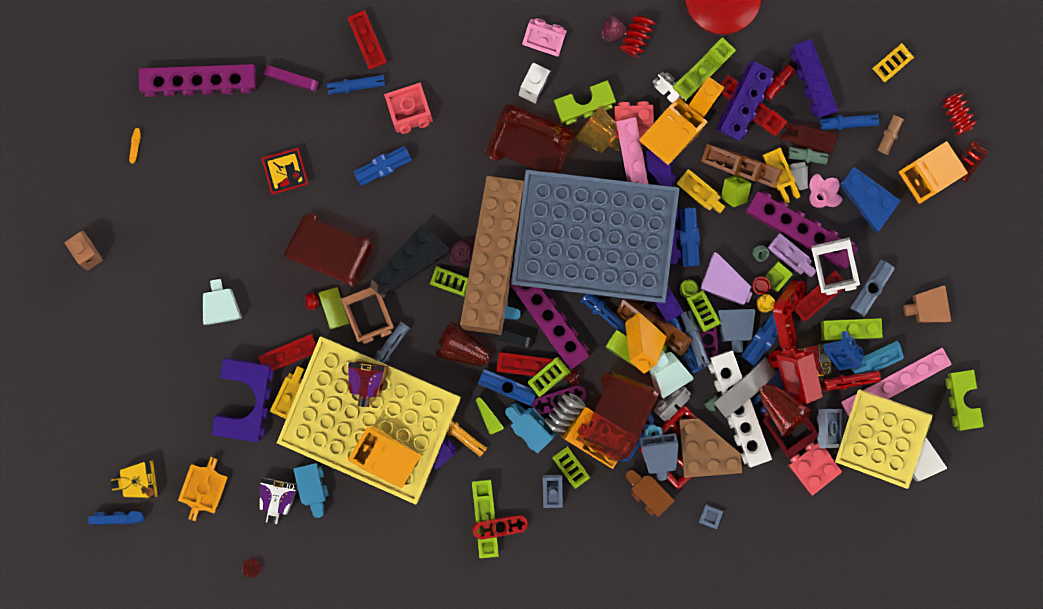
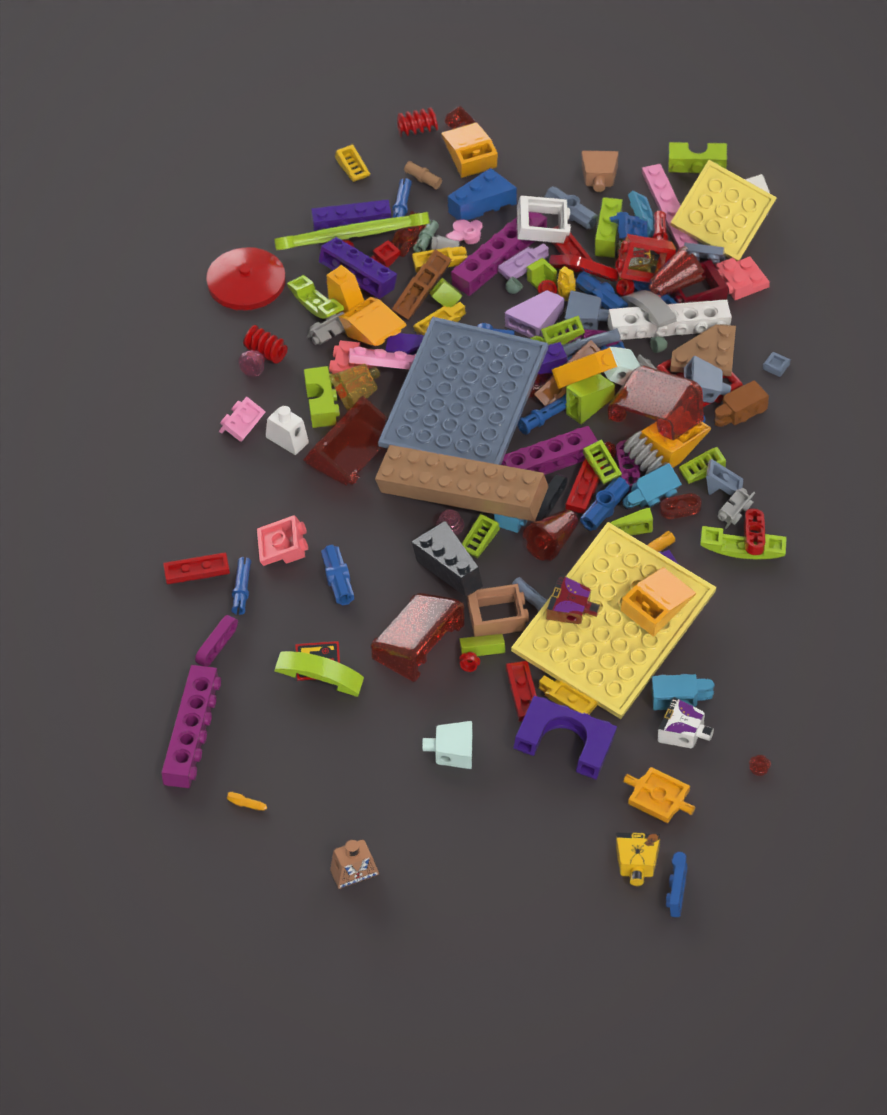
camera: 75 degrees left, 35 degrees down
(271, 175) = (320, 668): none -> lime slope
(516, 504) = (741, 502): none -> light grey hinge
(519, 455) = (680, 506): none -> clear red plate
(767, 25) = (353, 230): none -> lime piece

